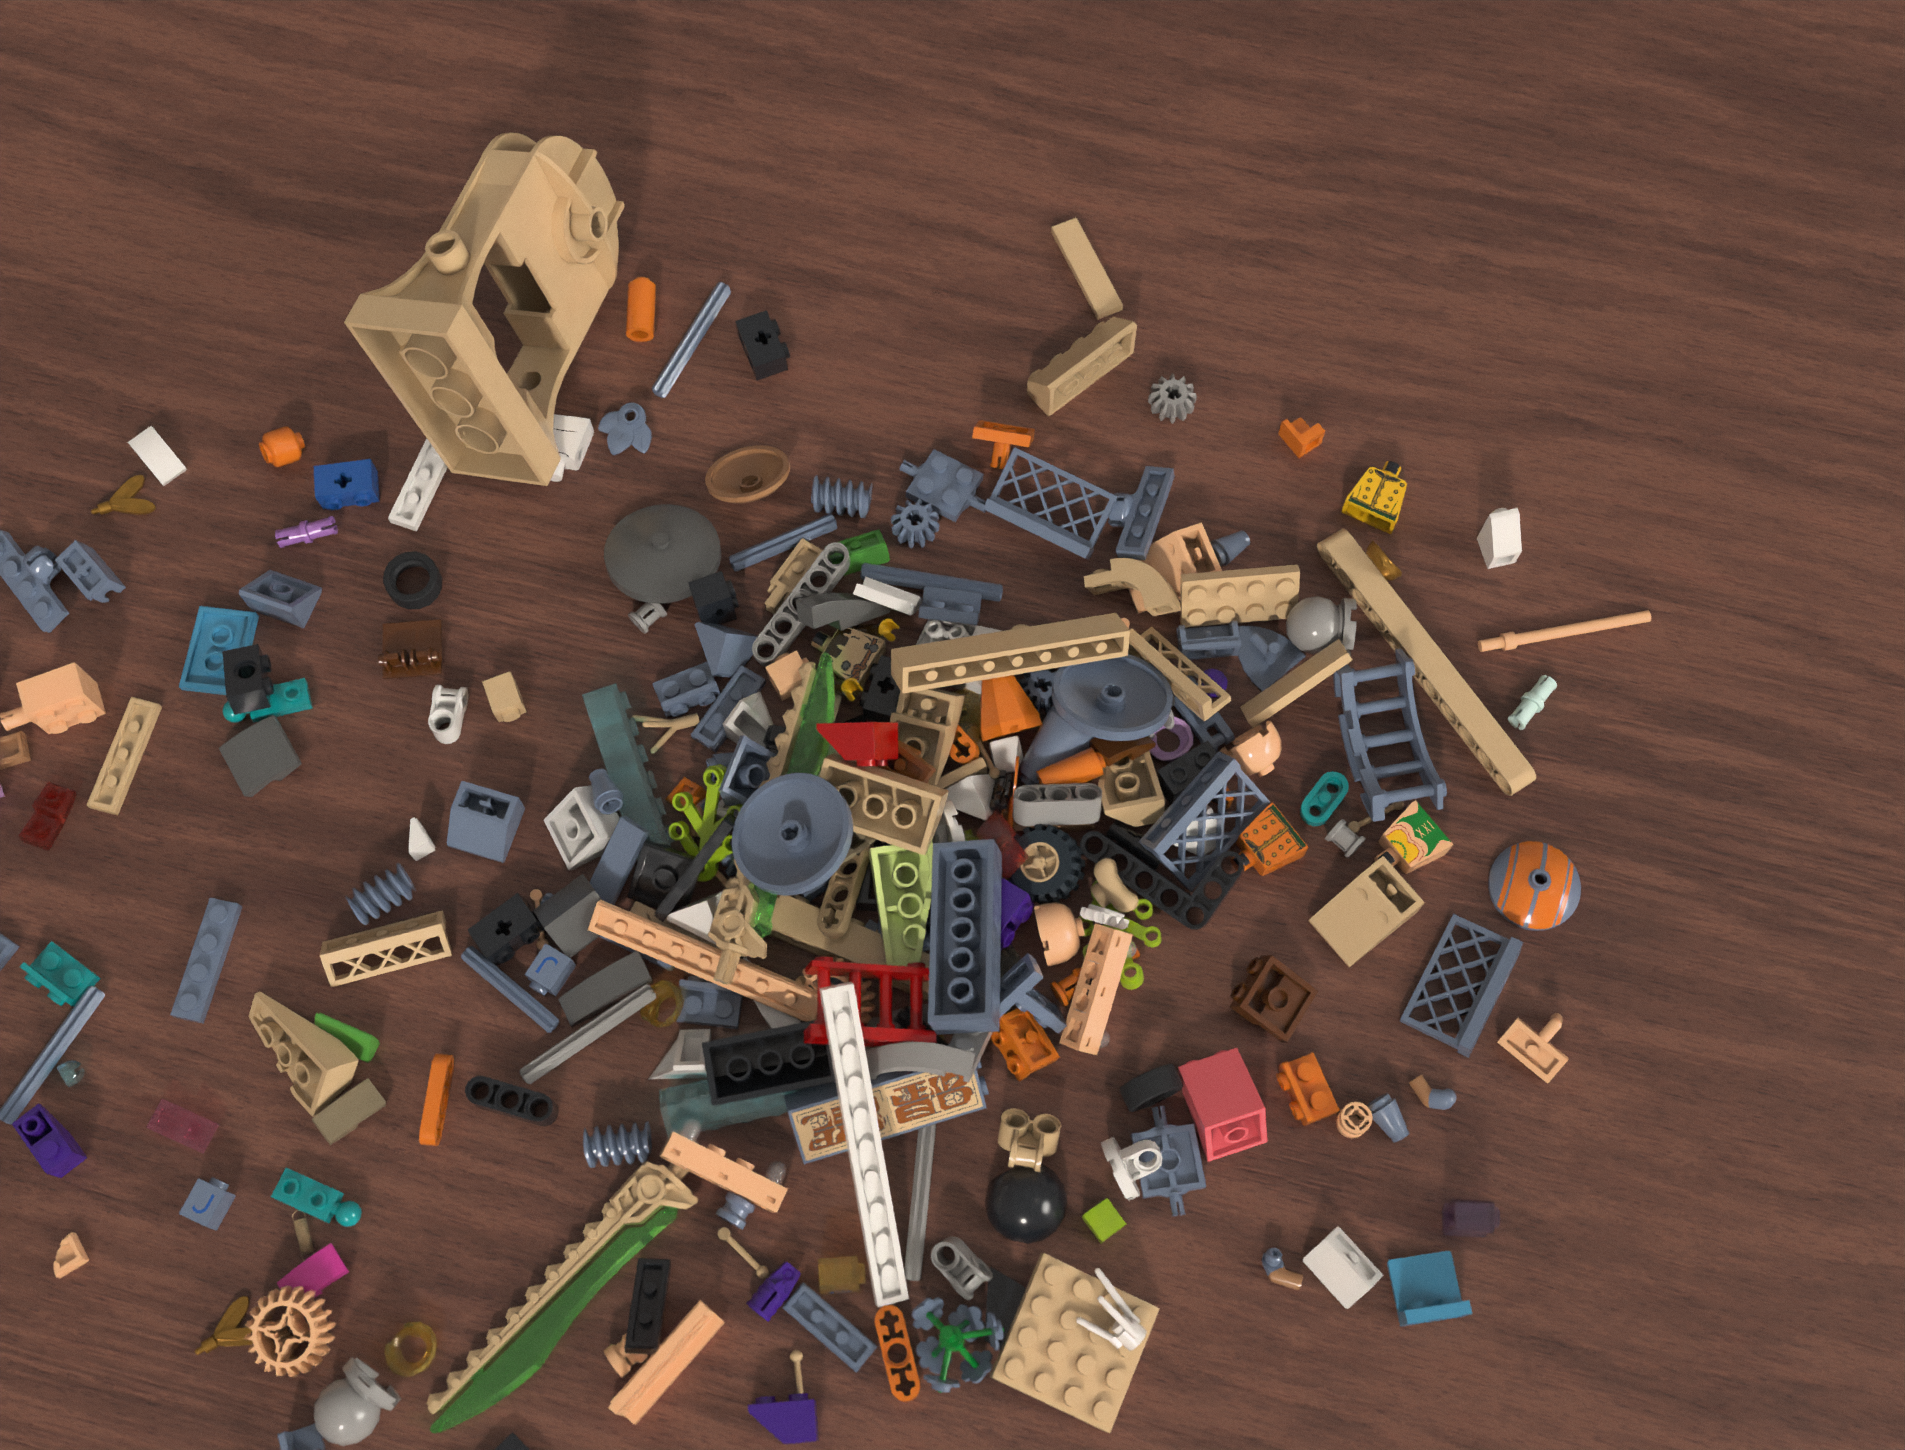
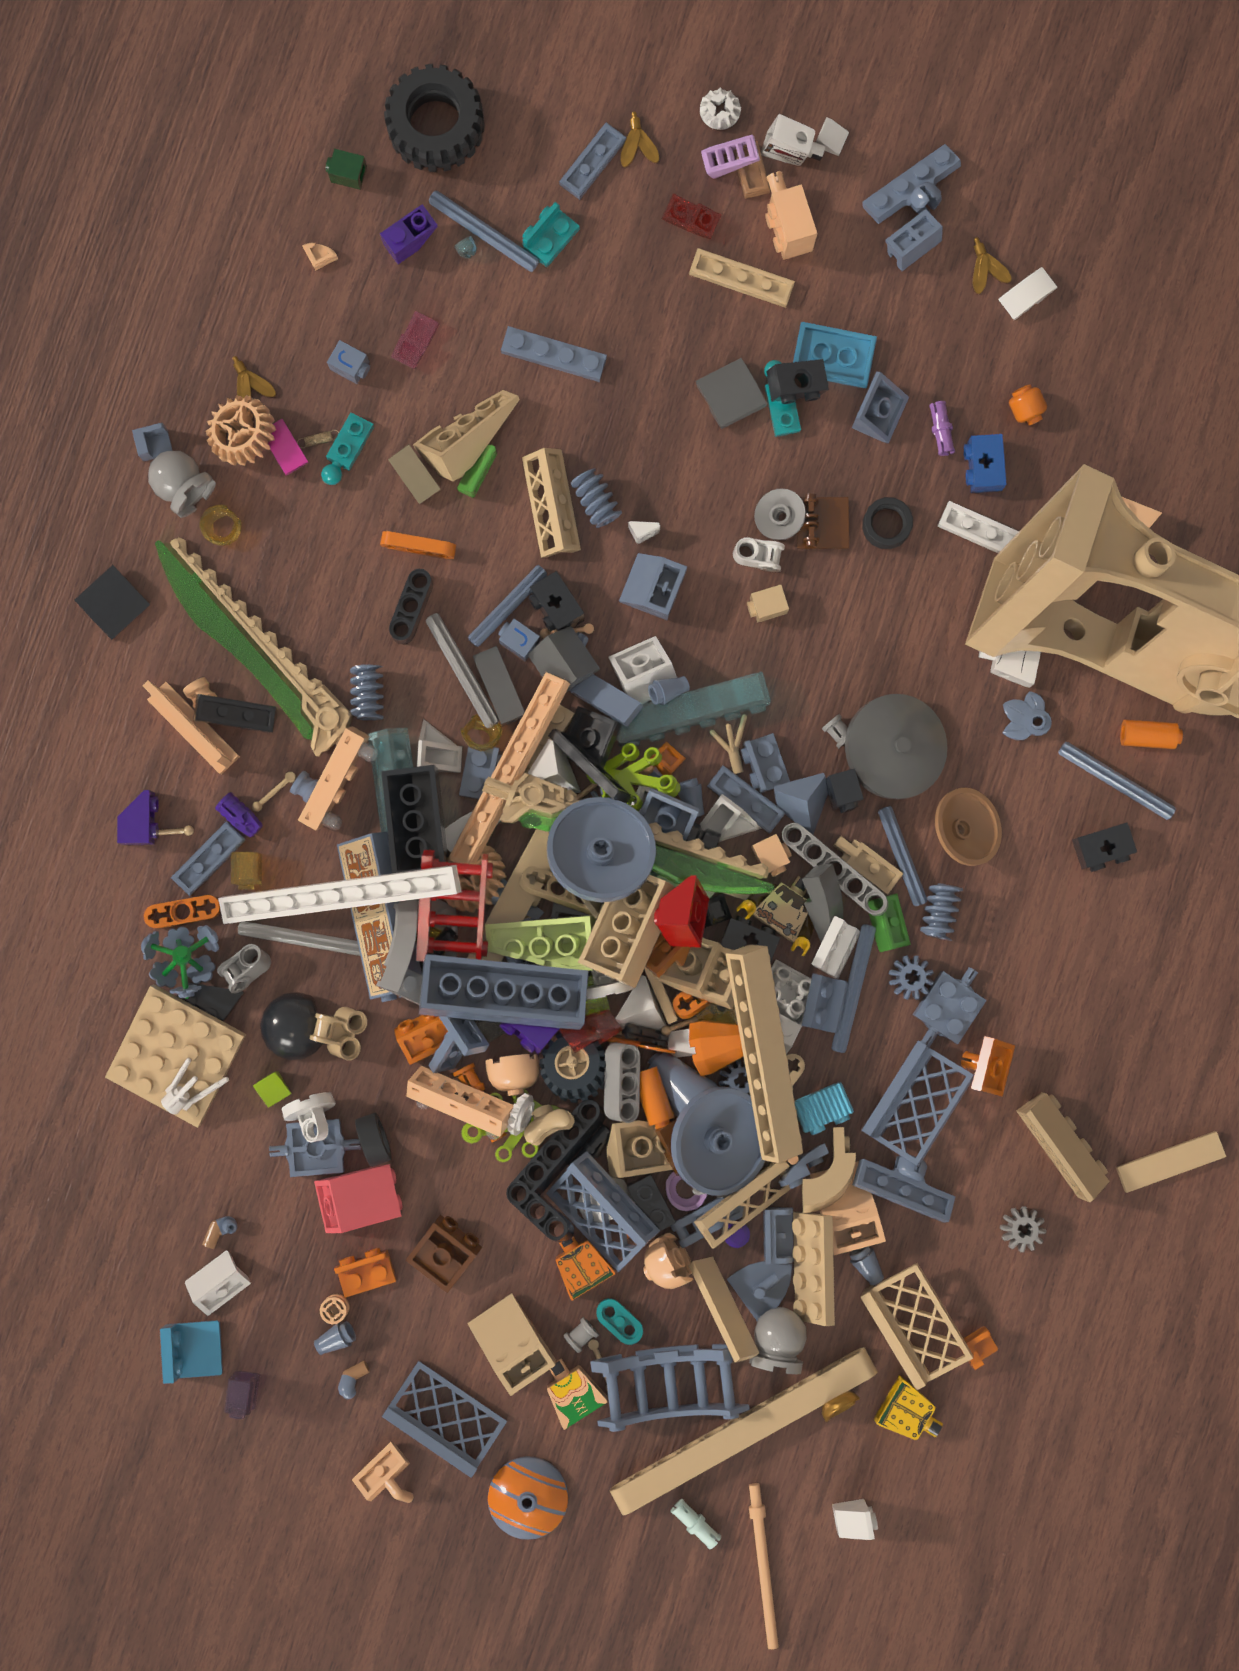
camera: 90 degrees right, 15 degrees up
(388, 686) = (773, 505): none -> light grey dish
(1062, 597) = (822, 1108): none -> medium azure brick
(1139, 621) = (795, 1173): none -> sand blue slope
(1300, 512) = (896, 1336): none -> tan fence

